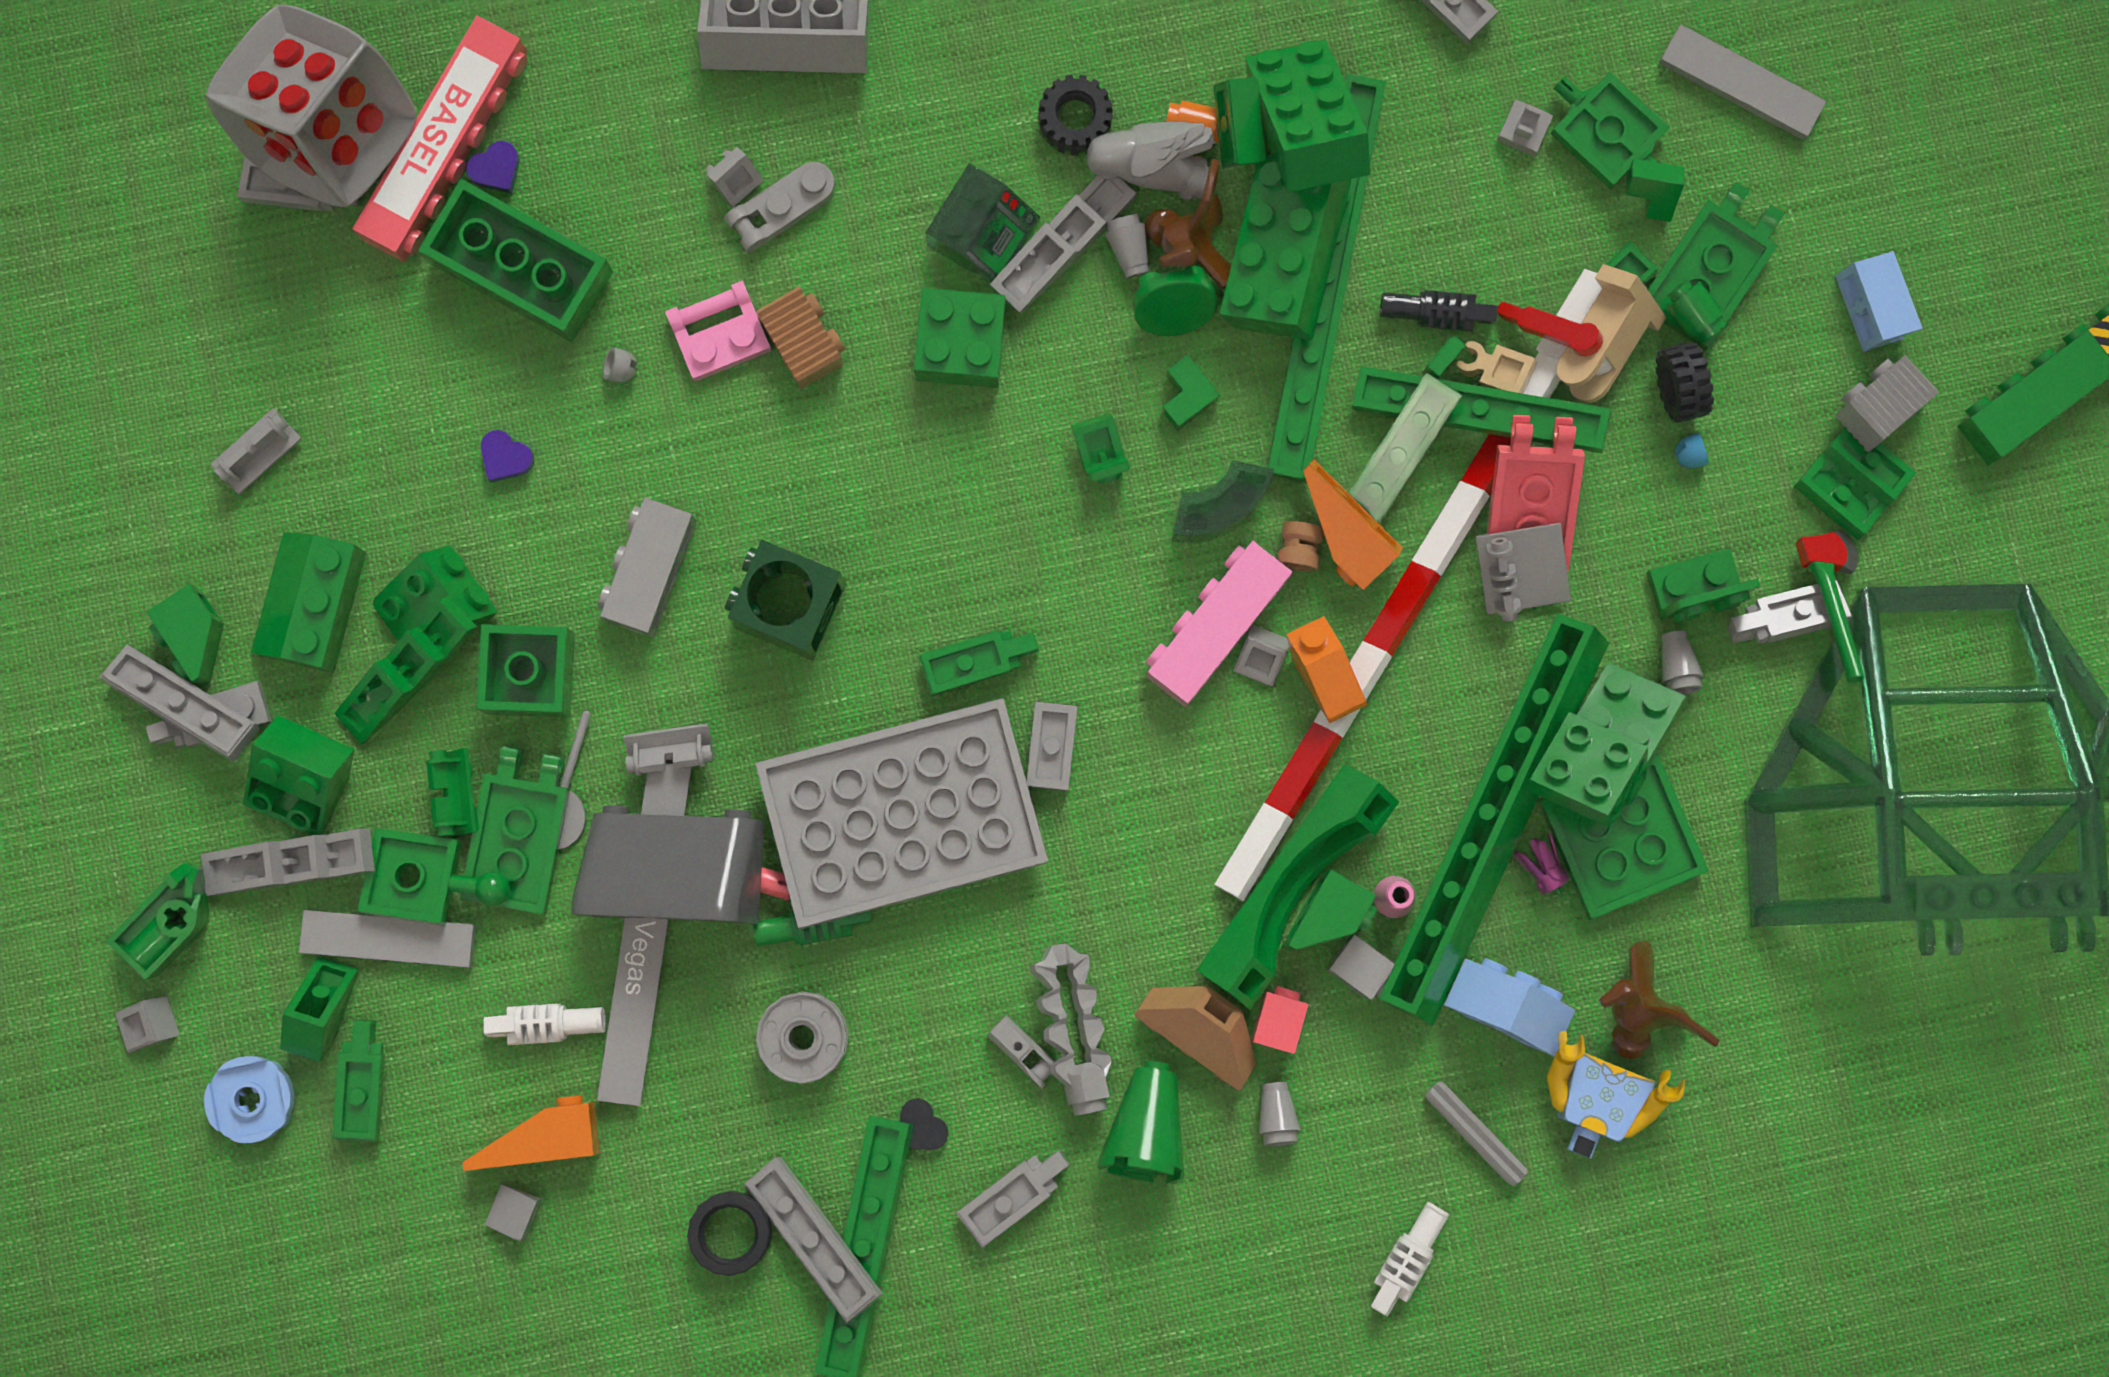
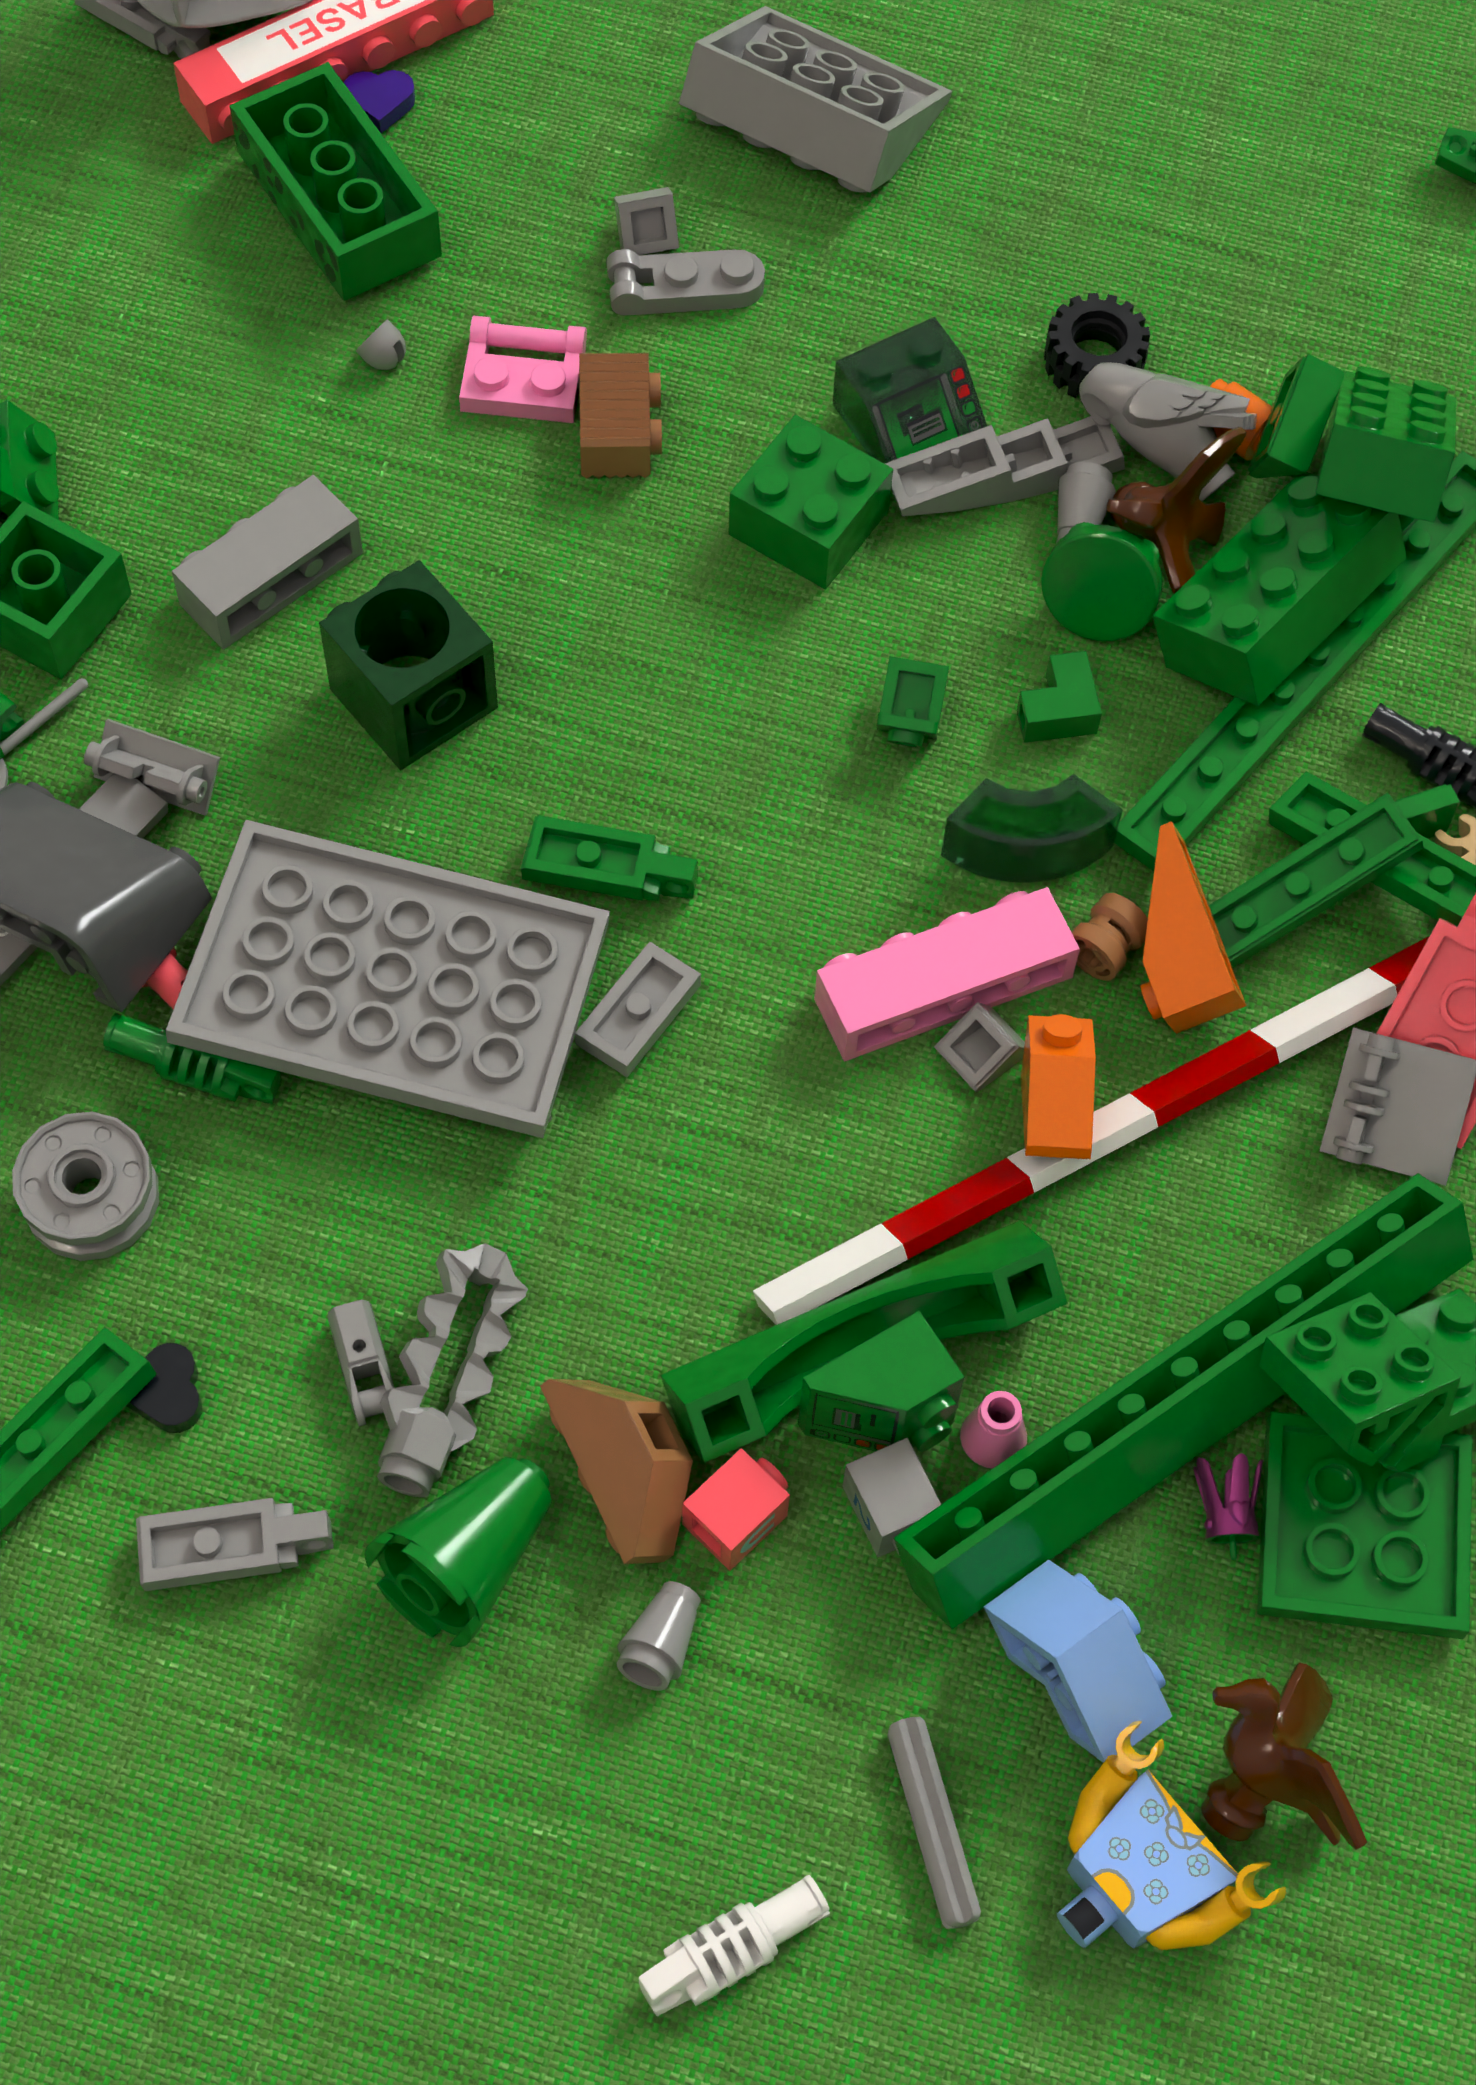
camera: 30 degrees right, 20 degrees down
(505, 457) = (183, 376): dark purple tile -> none

